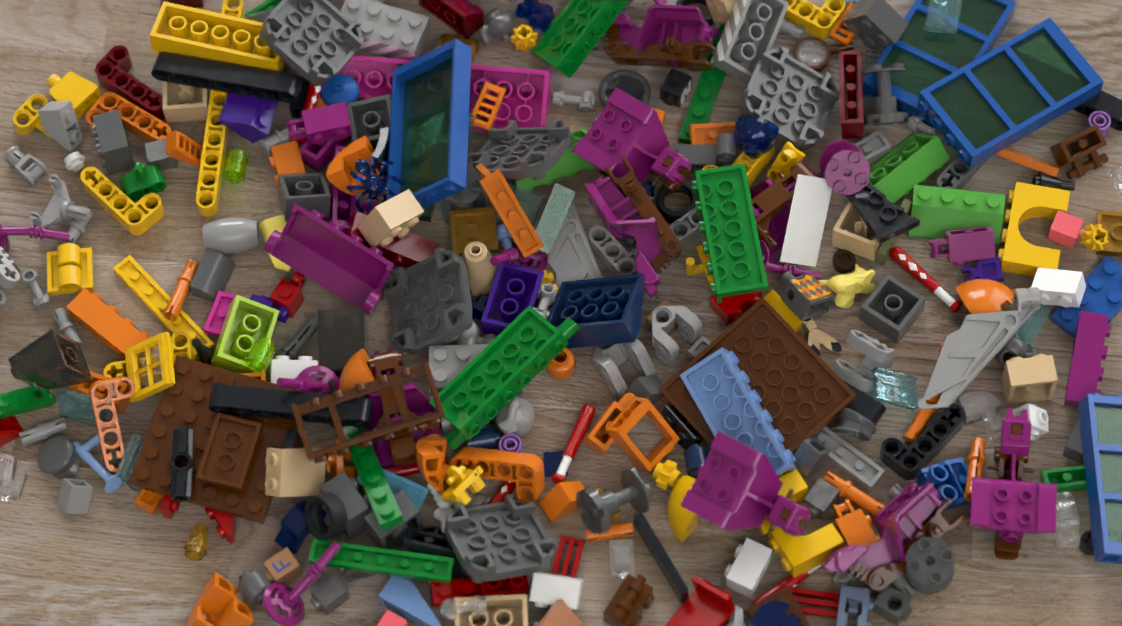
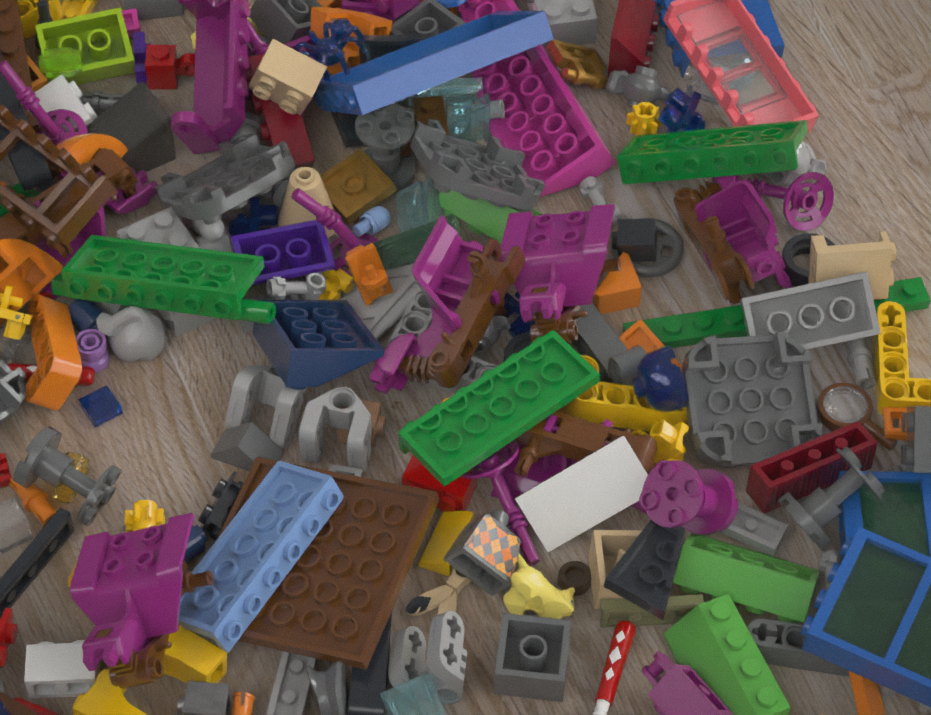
camera: 55 degrees right, 10 degrees down
(495, 109) = (509, 116): orange slope -> none
(509, 211) = (369, 187): orange fence -> none
(561, 500) = (72, 438): orange slope -> none
(562, 255) = (368, 273): none -> orange hips
(562, 365) = (232, 343): orange head -> none
(576, 437) = (138, 407): red piece -> none
(598, 437) = (177, 428): orange brick -> none
(628, 419) = (181, 431): orange window -> none
(675, 88) = (686, 289): black brick -> none
(810, 456) = (257, 662): flat silver brick -> none

